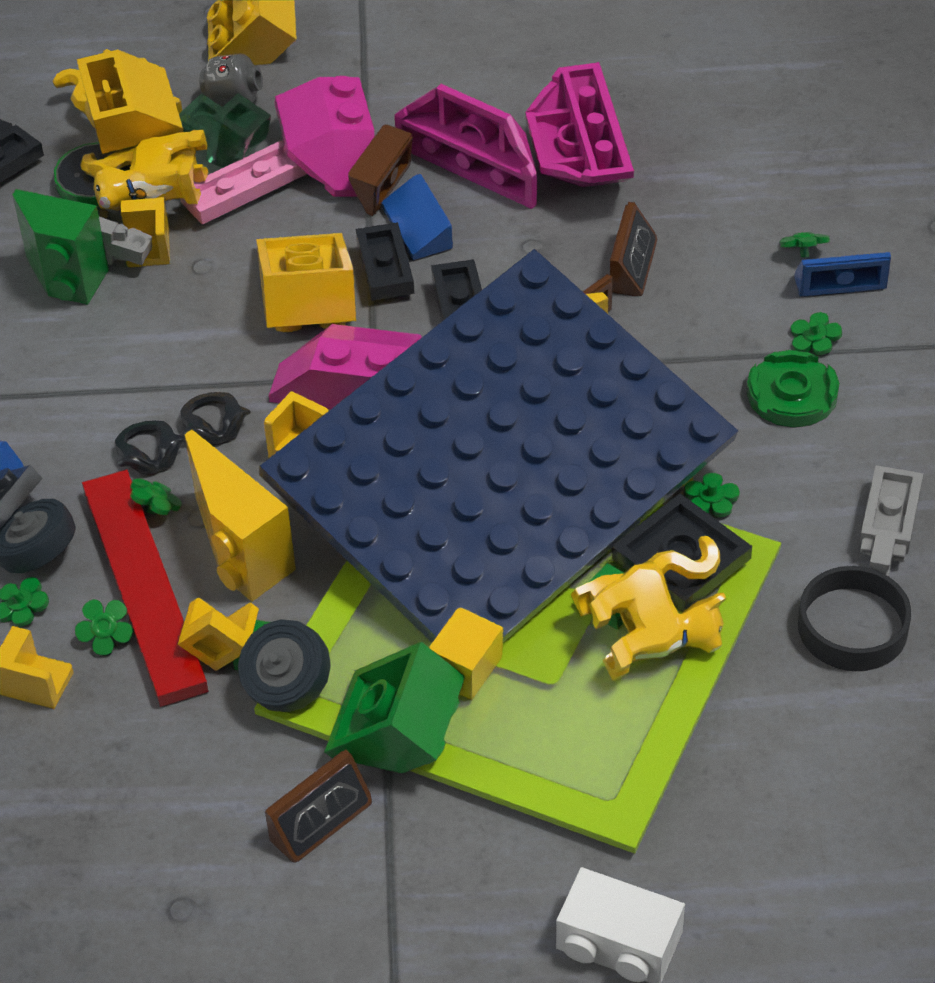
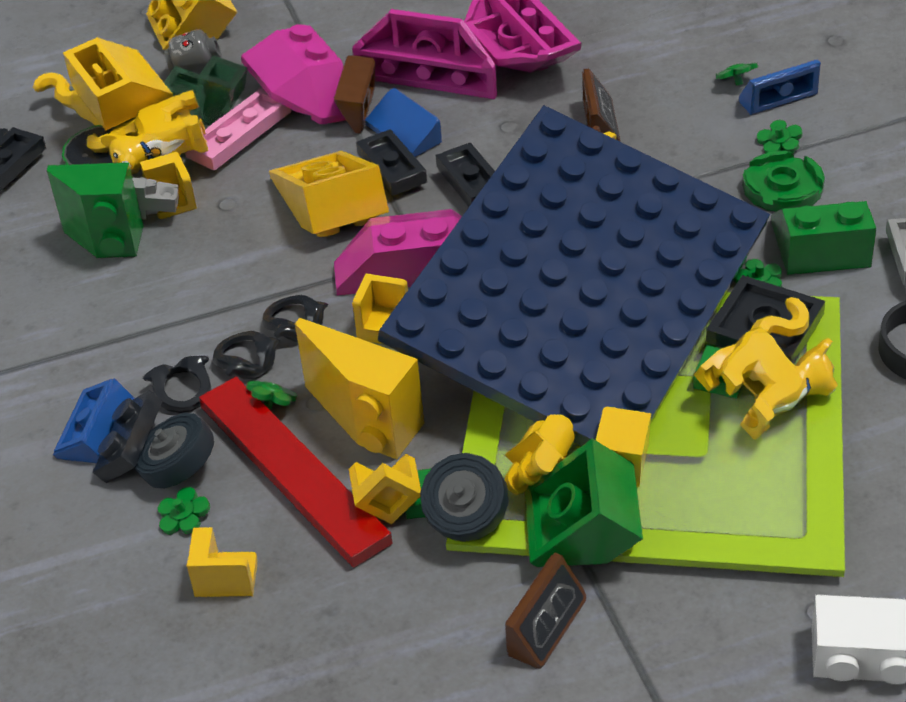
camera: 15 degrees left, 5 degrees down
(51, 449) = (192, 364): none -> black piece
(104, 626) = (273, 510): green plant -> none
(378, 636) = (538, 452): none -> yellow arm
(798, 468) = (825, 237): none -> green slope

